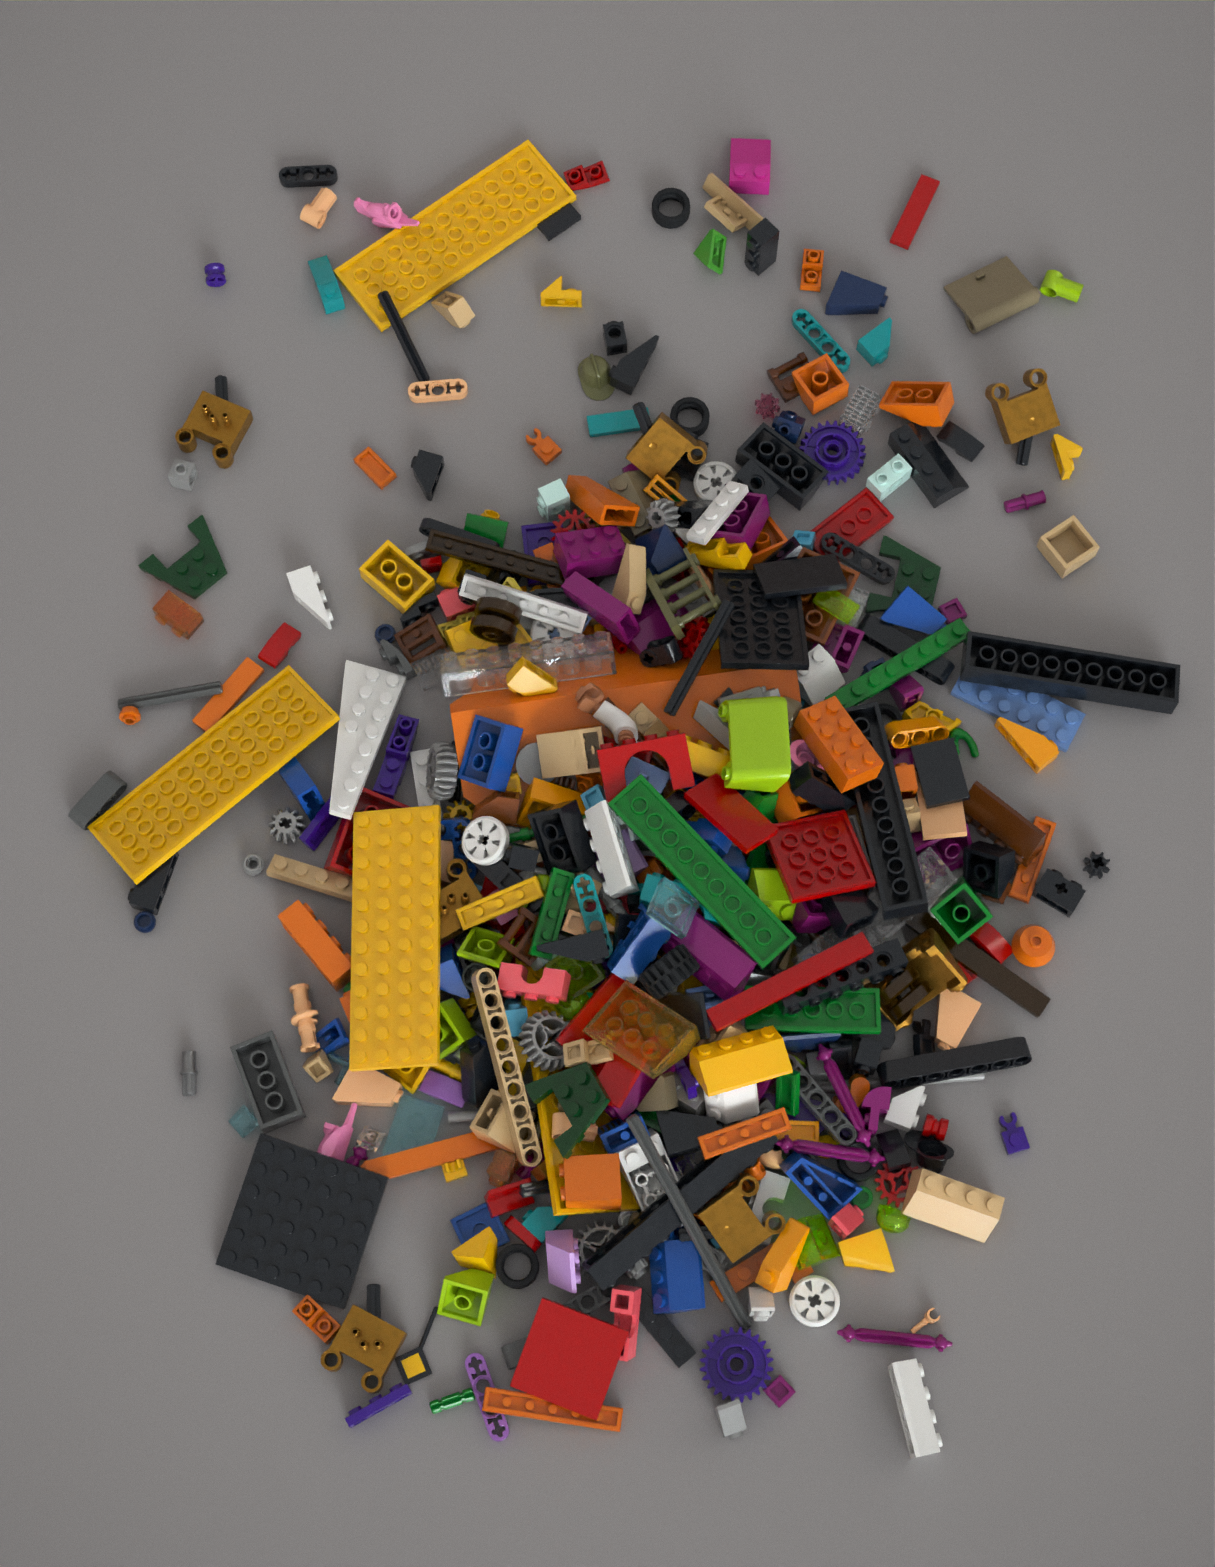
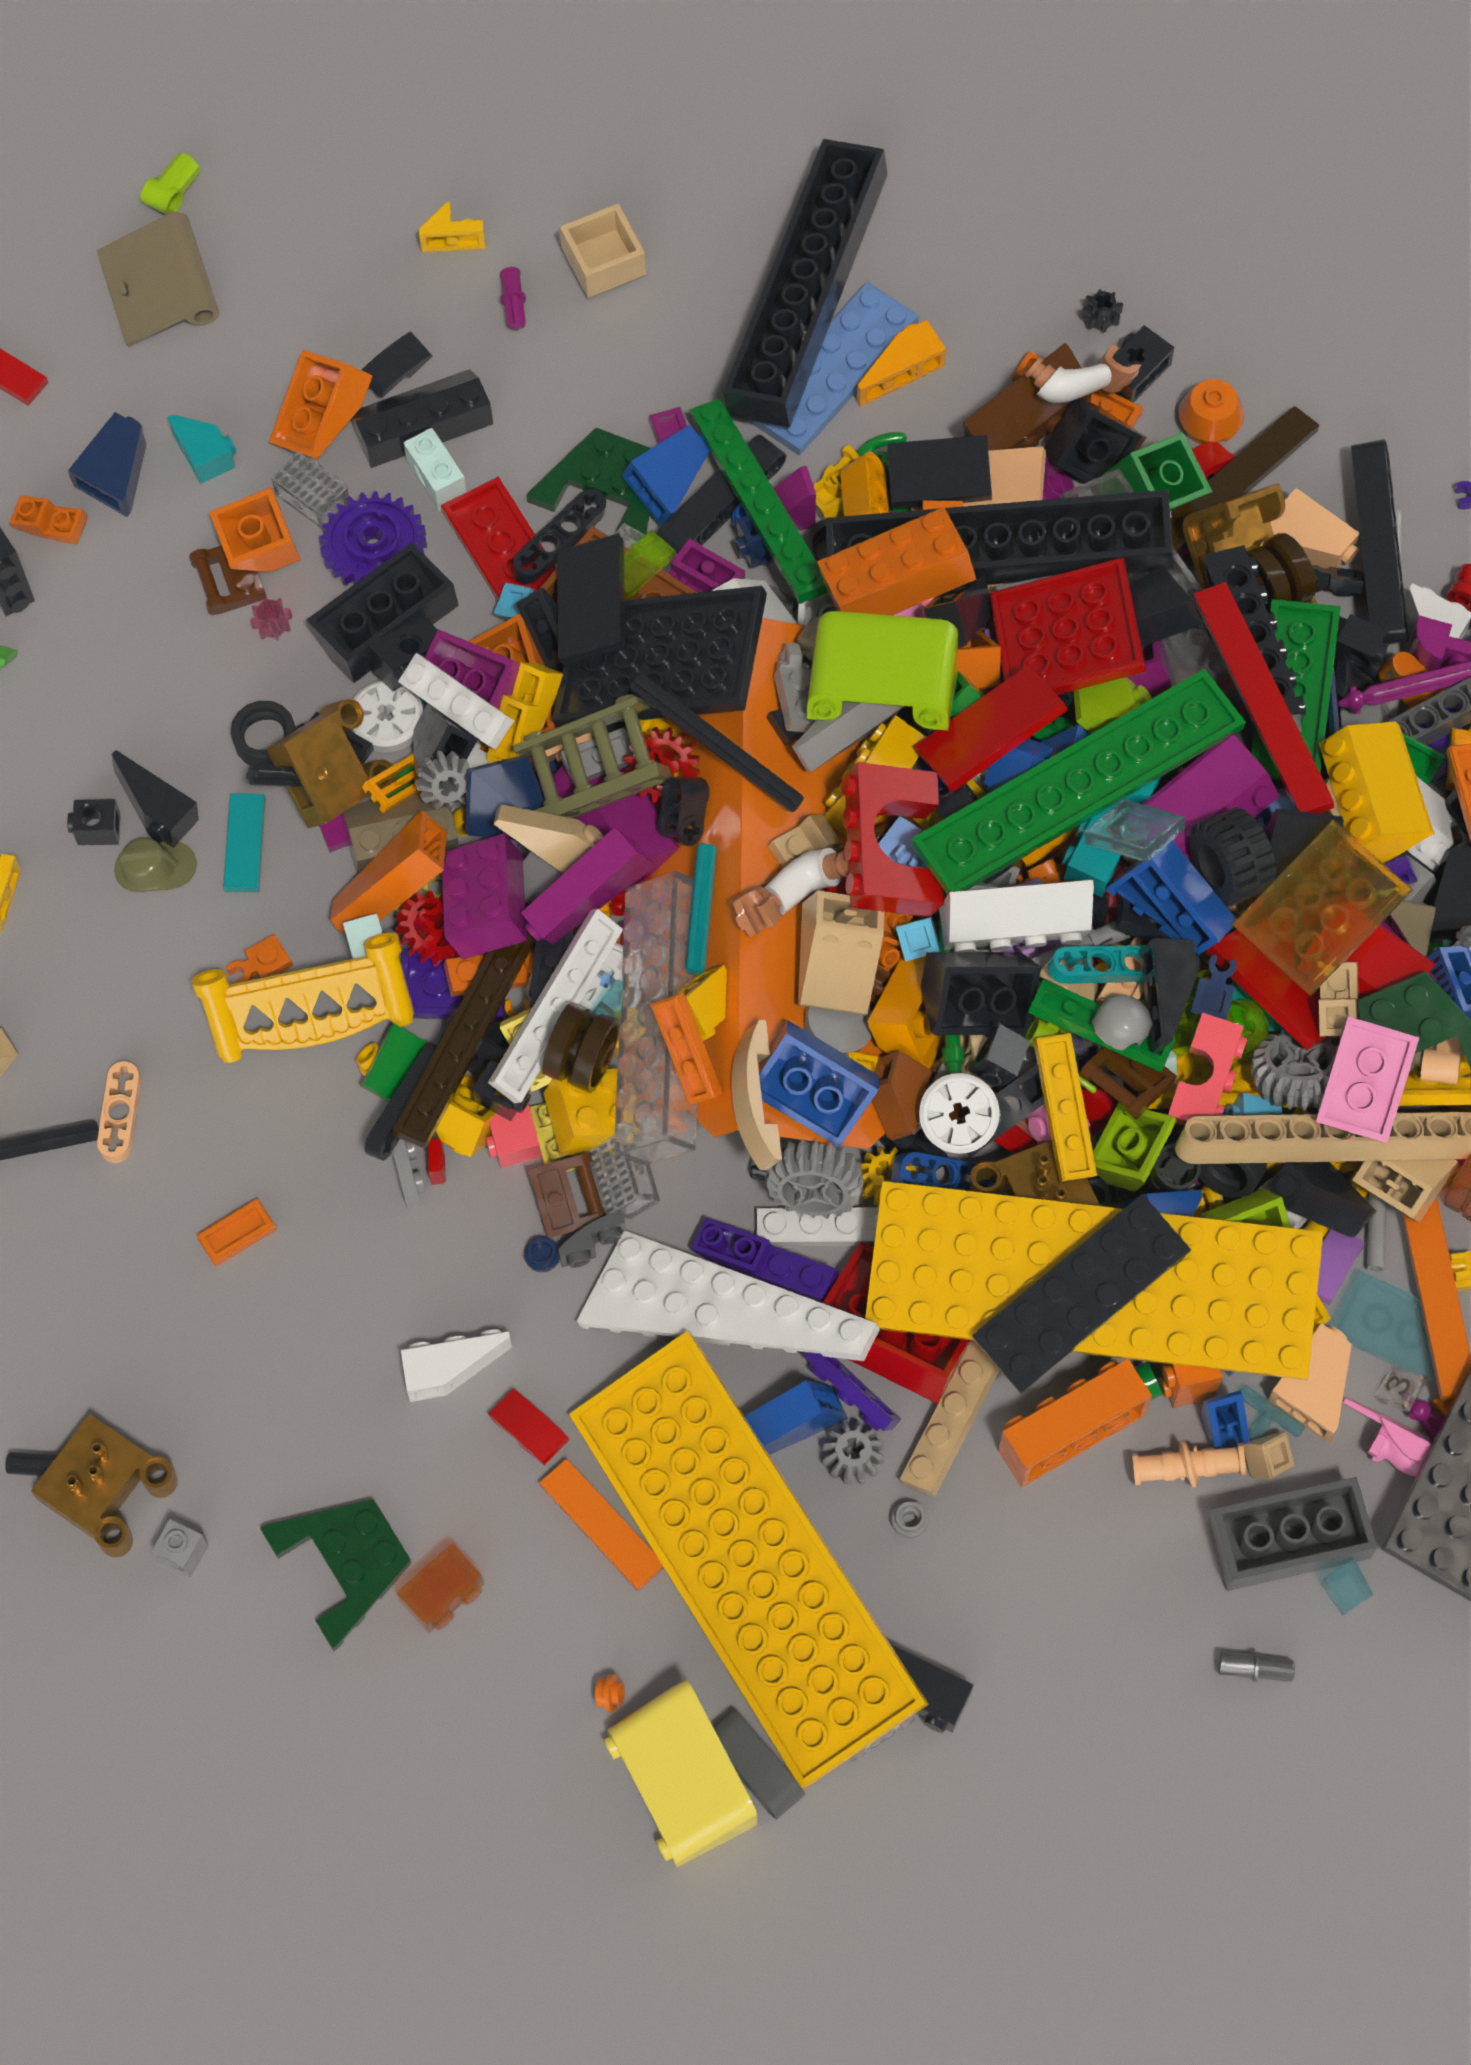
camera: 80 degrees left, 5 degrees down
(85, 759) = (682, 1774): none -> light yellow windscreen
(145, 922) = (983, 1711): dark blue plate -> none
(171, 695) = (587, 1620): dark grey axle -> none
(382, 928) = (1081, 1293): none -> black plate
(396, 577) = (452, 1215): yellow brick -> none
(424, 605) = (515, 1196): black slope -> none
(427, 471) = (268, 1146): black slope -> none
(497, 675) = (686, 1048): none -> orange tile
(499, 711) = (759, 1138): none -> tan slope
(530, 634) = (611, 1002): none -> clear light blue slope
(534, 501) = (377, 973): none -> yellow piece
(535, 1074) = (1367, 1079): none -> bright pink plate
(551, 923) = (1122, 1021): none -> light grey hair
(582, 977) = (1213, 995): none -> dark blue plate
(594, 671) = (700, 909): none -> teal axle
(789, 425) = (315, 589): dark blue brick -> none
(823, 339) = (171, 522): teal beam -> none
(1014, 840) = (1071, 384): none -> piece
(1025, 413) = (376, 263): pearl gold piece -> none

